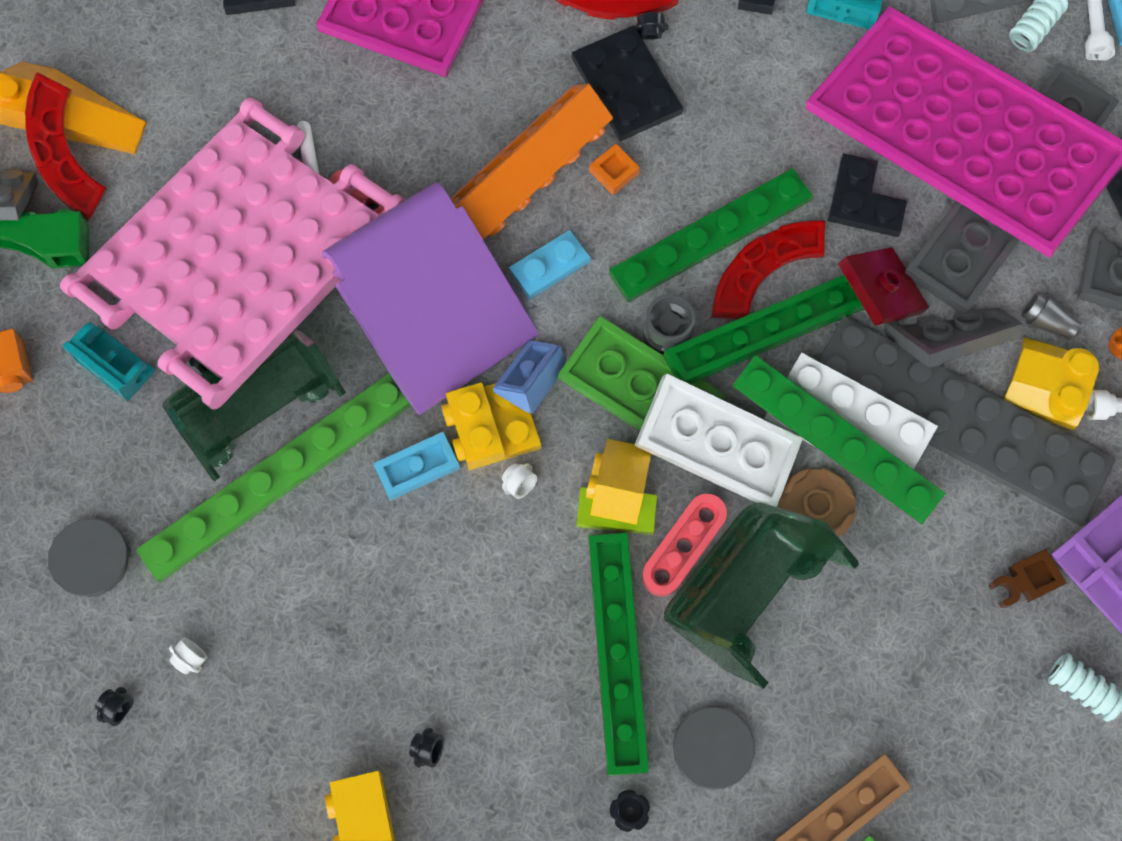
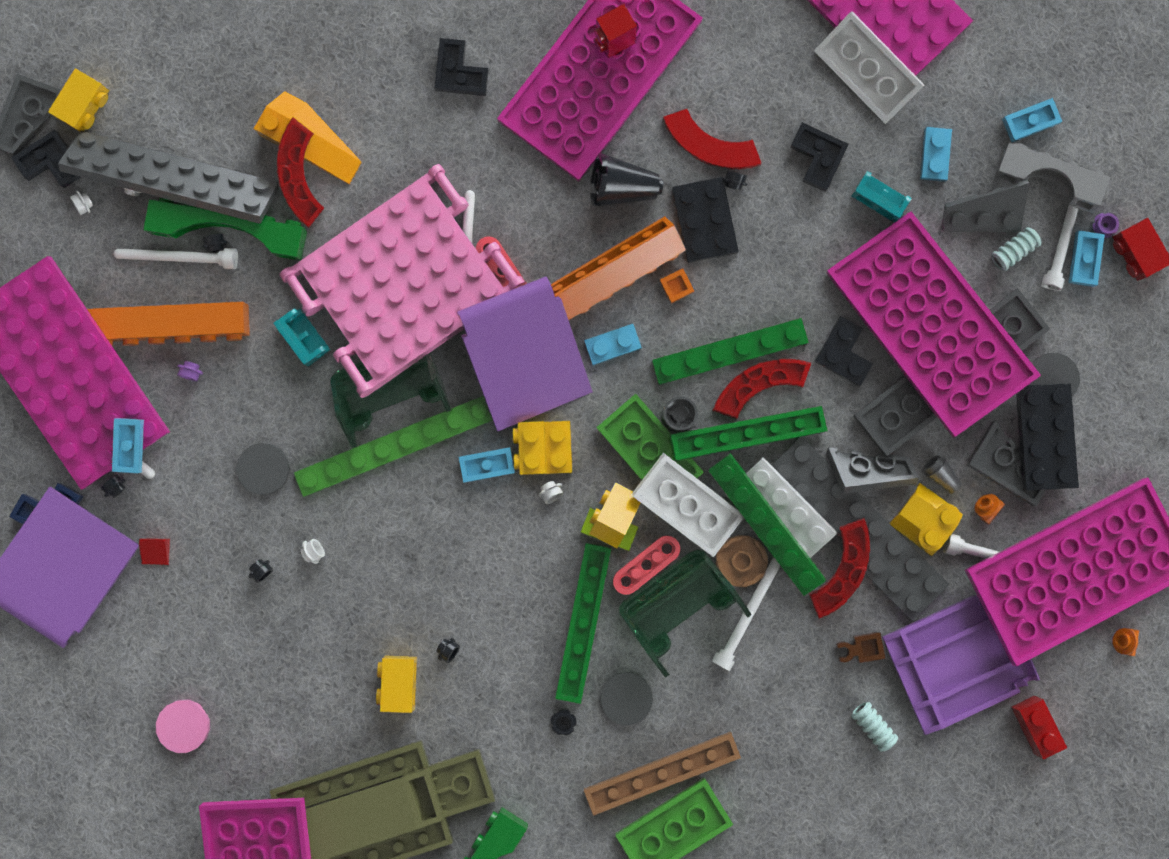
camera: 20 degrees right, 15 degrees up
(504, 57) = (622, 182): none -> black cone
(531, 375) = (578, 422): medium blue slope -> none
(839, 643) = (725, 656): none -> white piece
(883, 286) = (834, 423): dark red plate -> none
(973, 477) = (849, 572): none -> red tile

